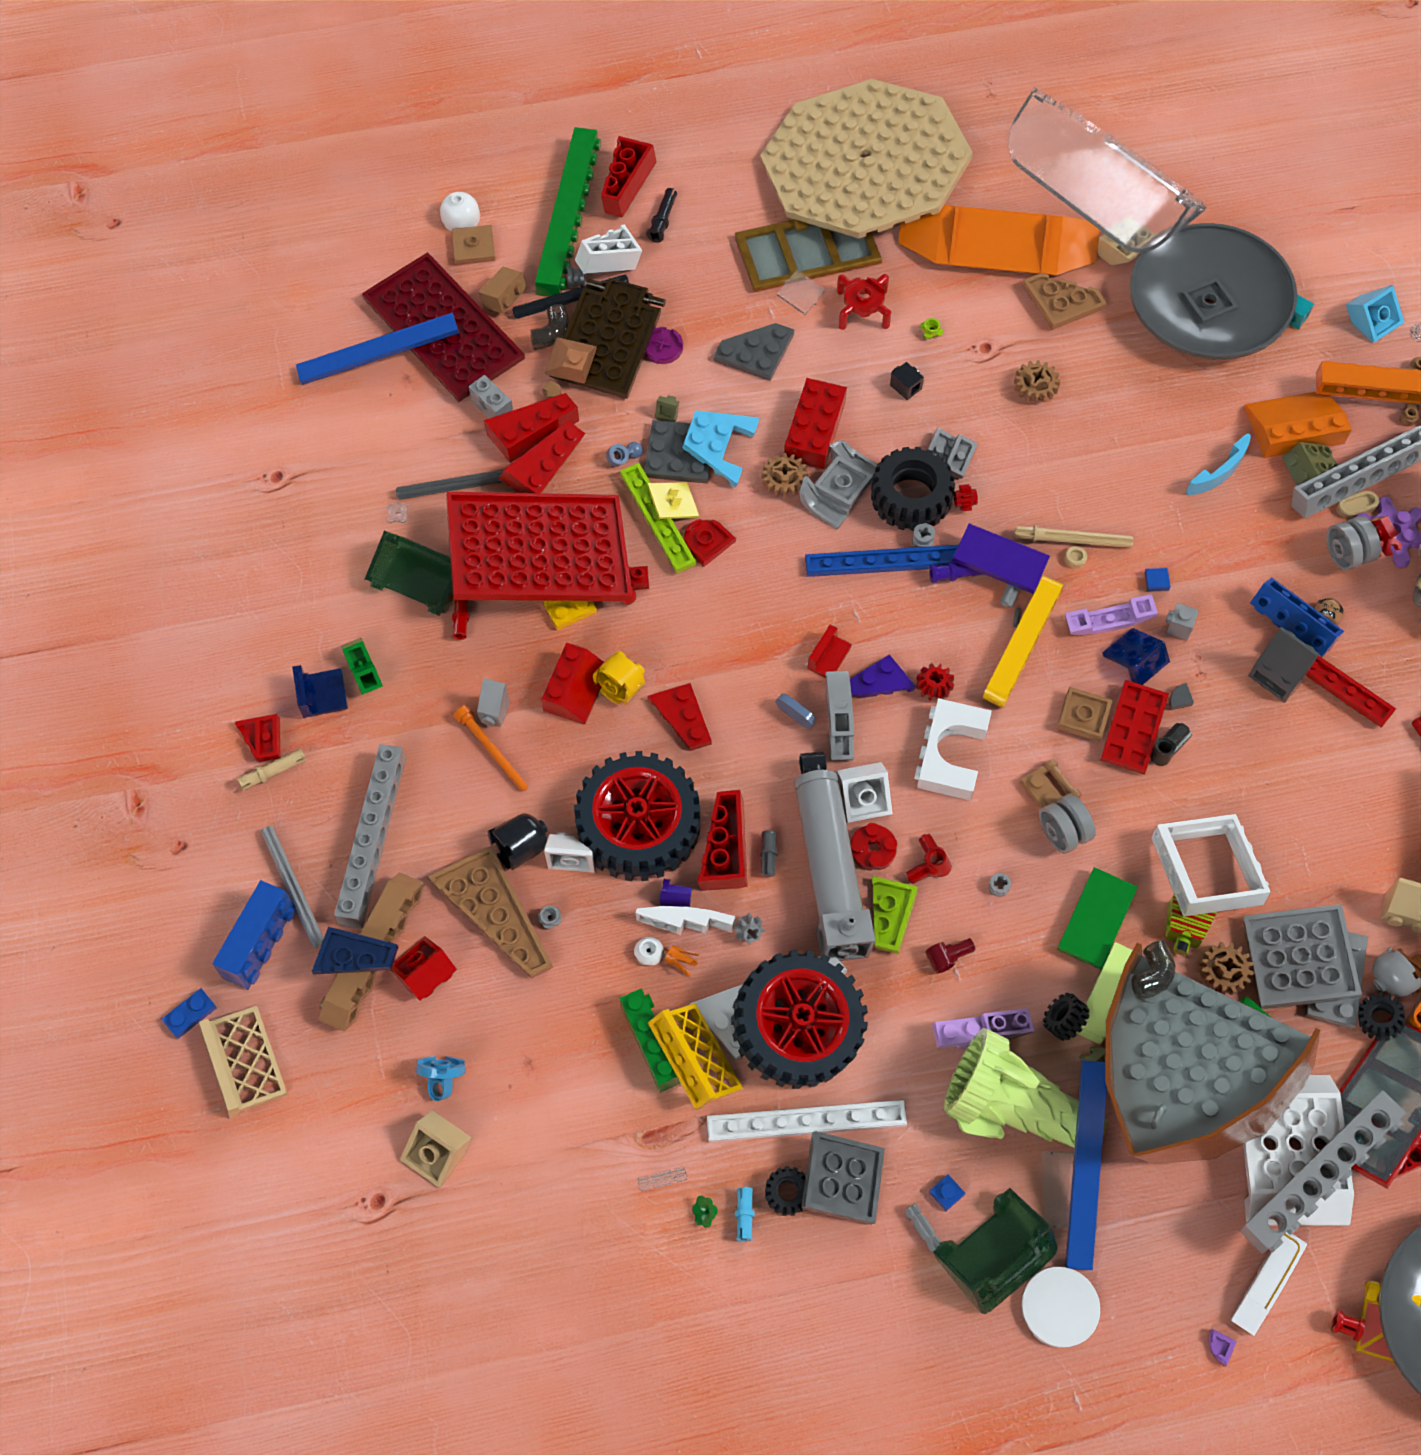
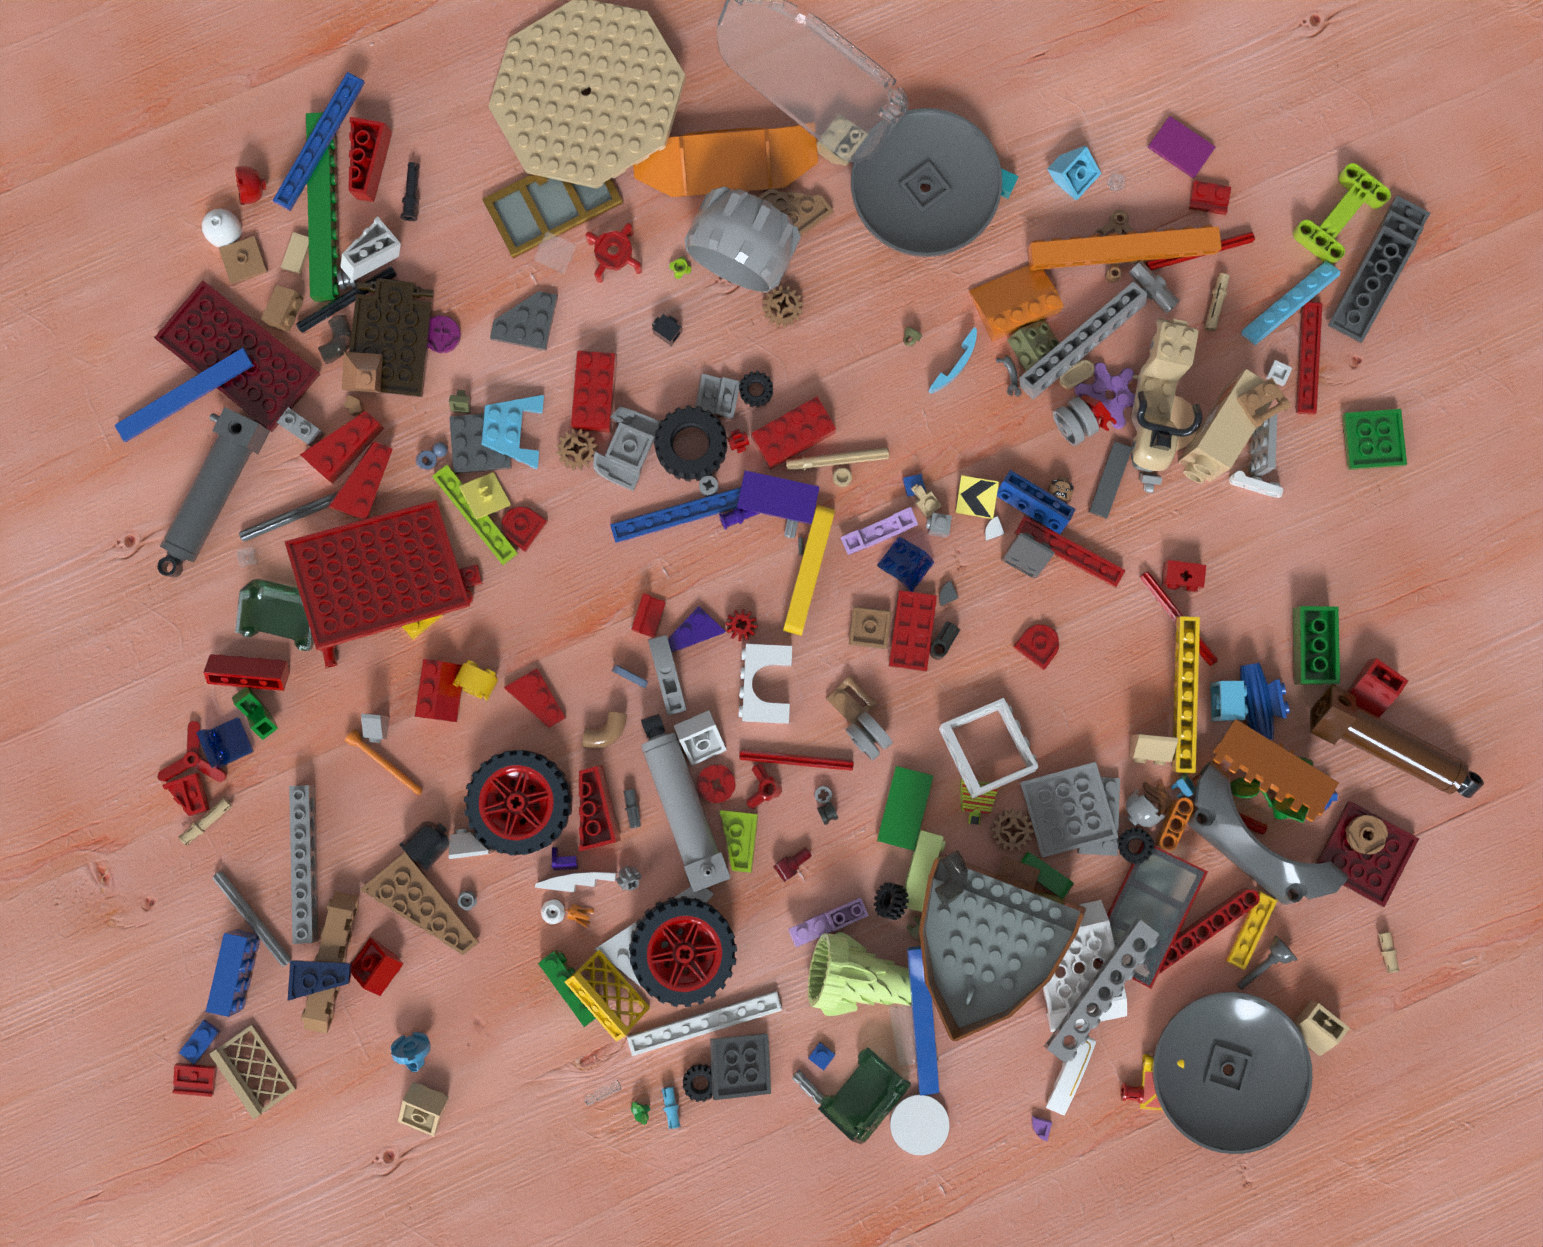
camera: 15 degrees left, 20 degrees up
(170, 1054) = (194, 1079): none -> red plate
(282, 708) = (185, 763): none -> red piece
(365, 622) = (246, 672): none -> red brick
(423, 395) = (211, 488): none -> dark grey piece
(500, 178) = (249, 184): none -> red cylinder
(529, 248) = (296, 253): none -> tan tile
(580, 151) = (318, 141): none -> blue tile
(756, 766) = (608, 734): none -> medium nougat cylinder
(974, 840) = (798, 760): none -> red axle
(995, 443) = (756, 378): none -> black tyre
(1002, 904) = (827, 813): none -> pearl dark grey wheel
(1008, 297) = (742, 239): none -> light grey wheel
(1028, 500) = (793, 433): none -> red brick
(1168, 595) = (926, 500): none -> tan plate
(1175, 431) = (912, 333): none -> olive tile
(1229, 601) = (977, 497): none -> piece
(1244, 640) = (993, 529): none -> white tile
(1282, 771) = (1038, 644): none -> red tile
(1285, 491) = (1008, 363): none -> dark grey piece
(1386, 616) = (1110, 480): none -> dark grey tile

